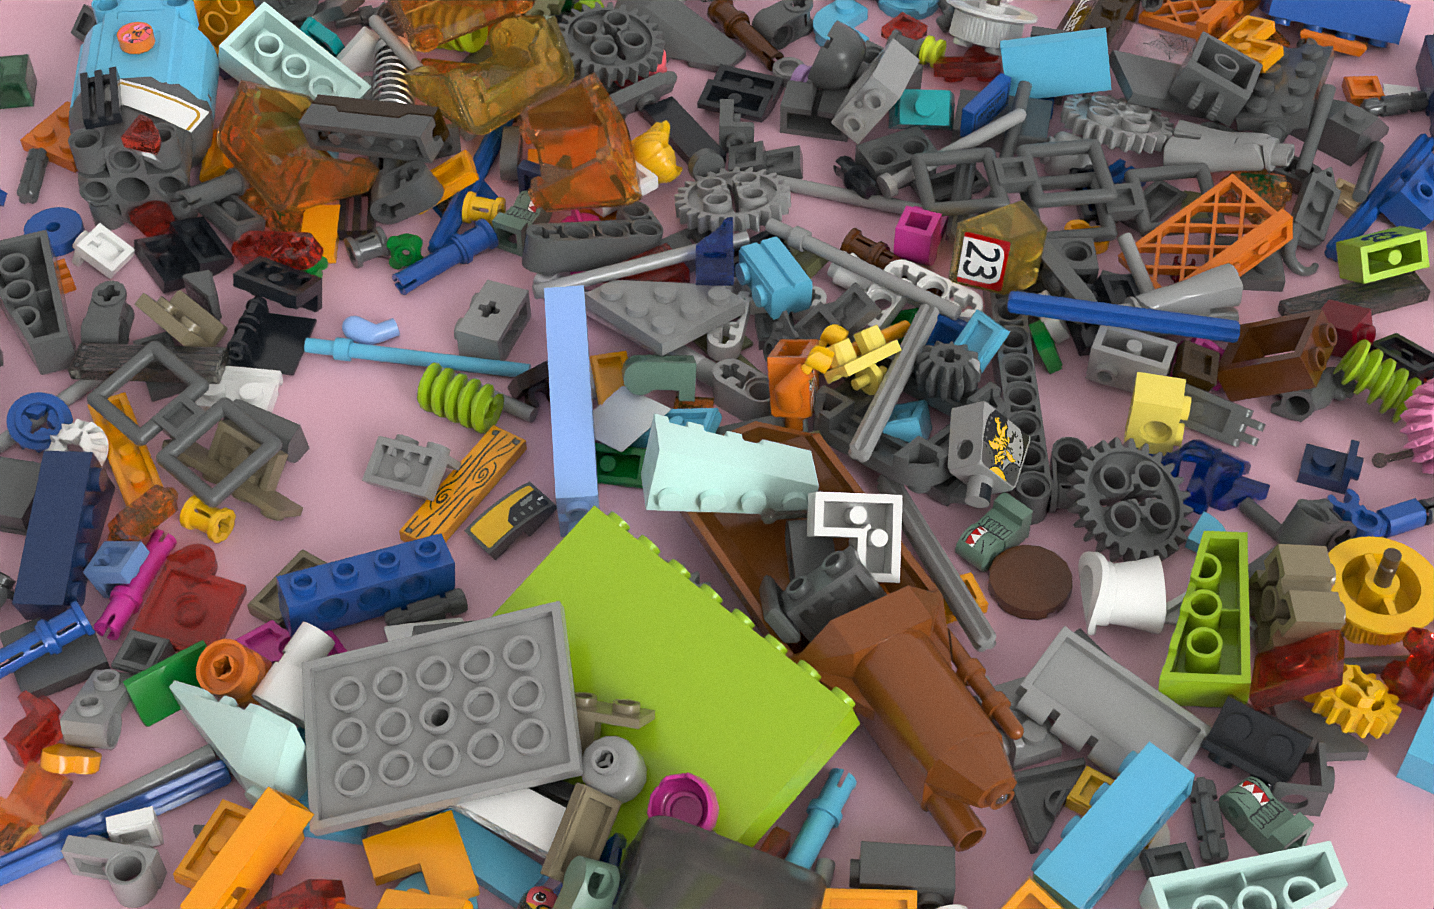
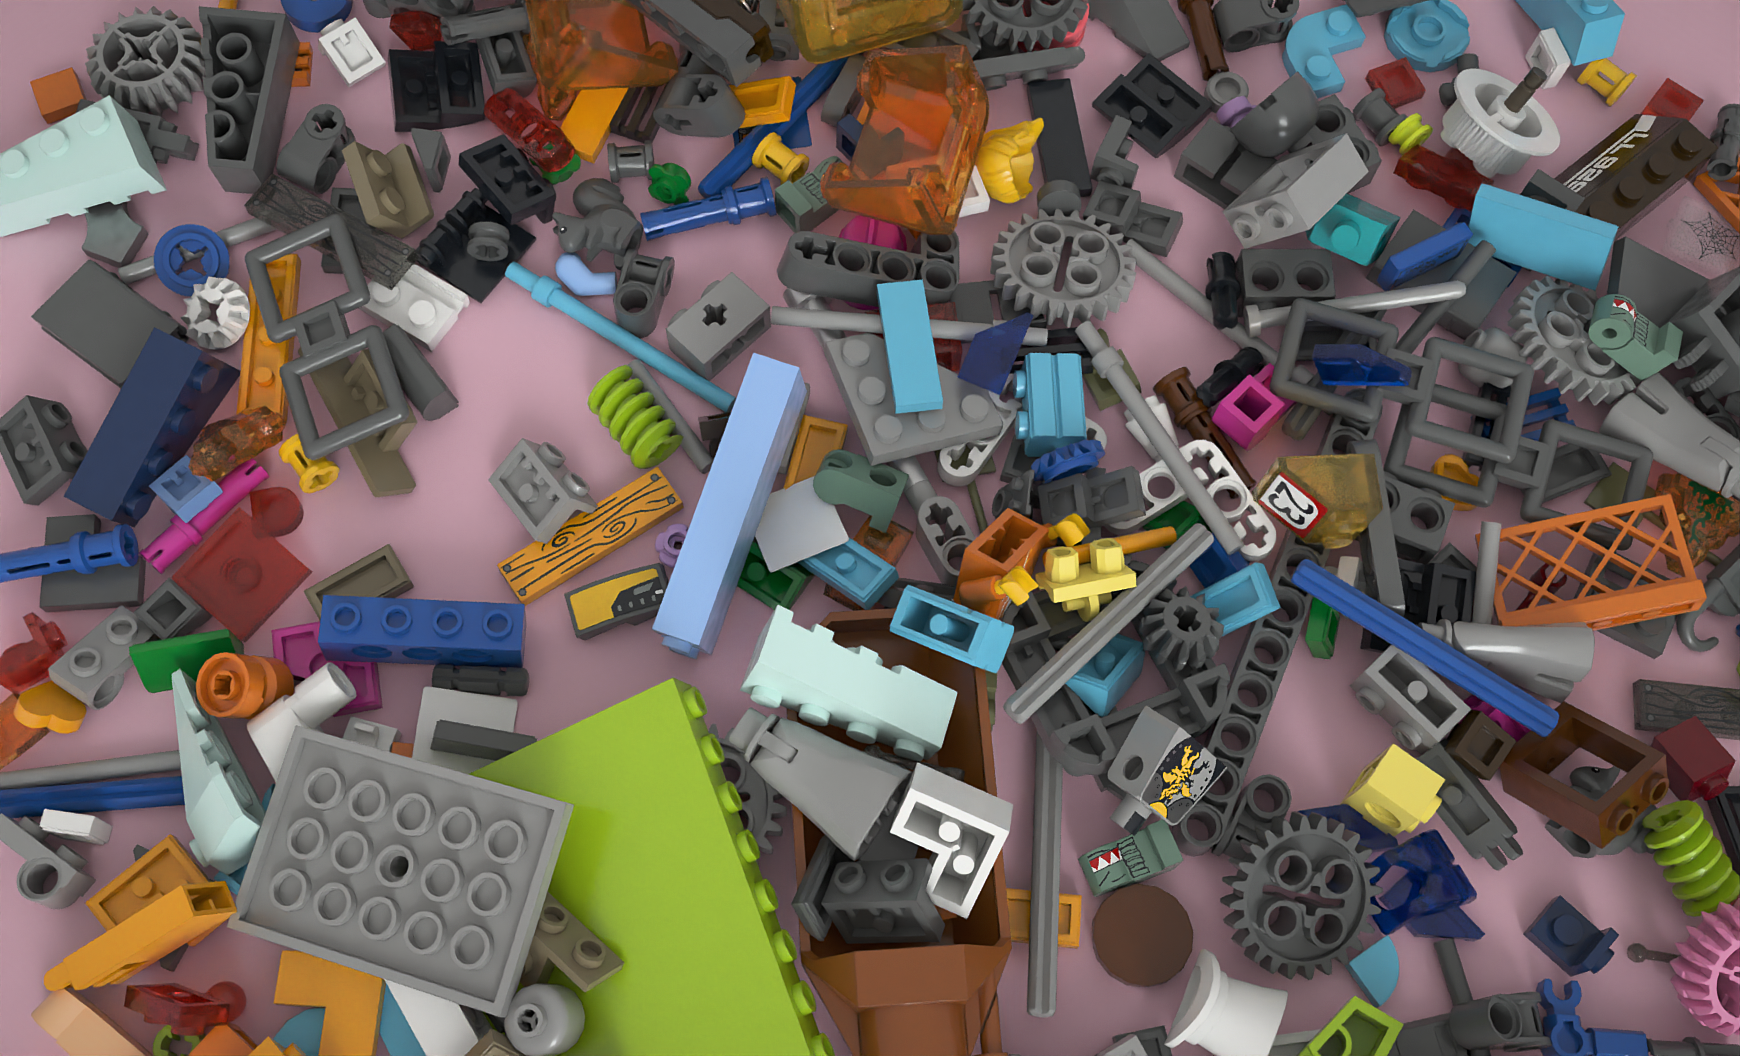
camera: 20 degrees right, 20 degrees up
(284, 336) = (488, 241): none -> dark grey bush
(364, 292) = (605, 224): none -> dark grey animal
(420, 322) = (642, 285): none -> dark grey piece
(538, 470) = (665, 543): none -> lavender plate
(651, 269) = (909, 346): none -> medium azure tile
(753, 536) = (823, 778): none -> light grey piece
(785, 410) = (951, 629): none -> medium azure brick
(807, 297) = (1068, 461): none -> blue gear
(887, 223) = (1229, 375): none -> black axle
(978, 173) = (1358, 366): none -> clear blue tile
(1152, 102) = (1632, 337): none -> sand green leg

